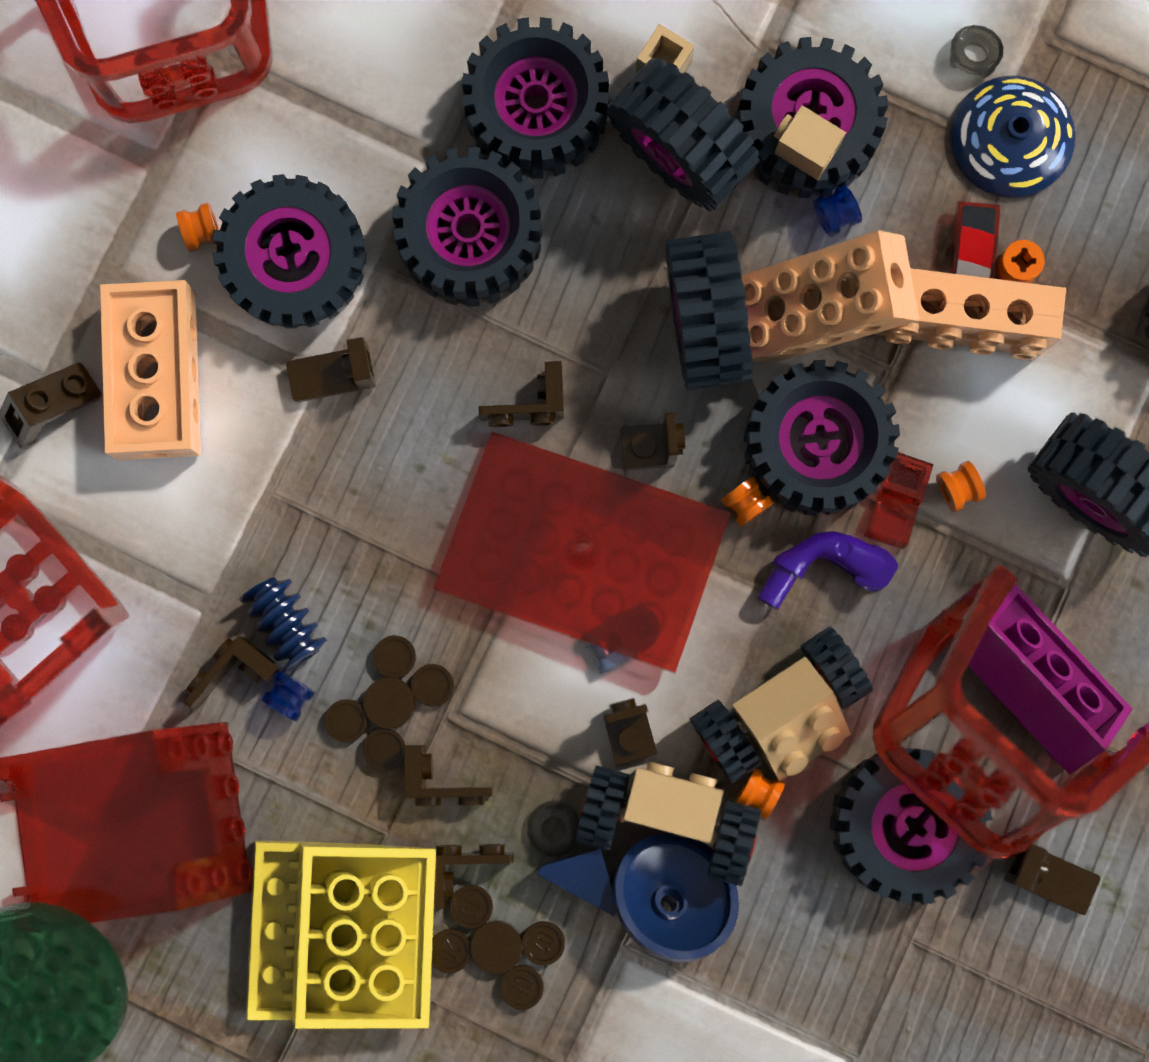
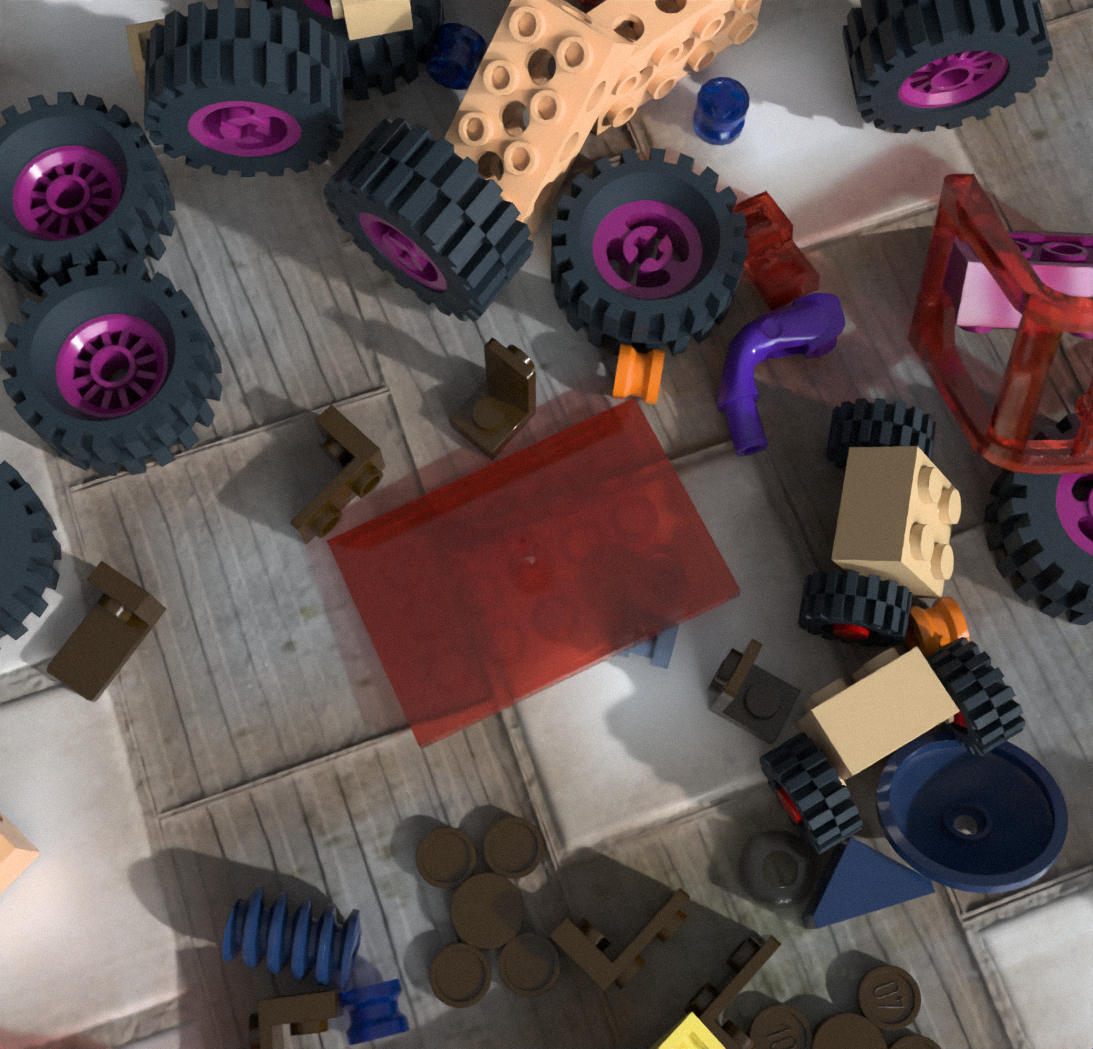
camera: 50 degrees left, 10 degrees down
(961, 486) = (811, 184): orange wheel -> none
(964, 386) = (720, 97): none -> clear blue wheel

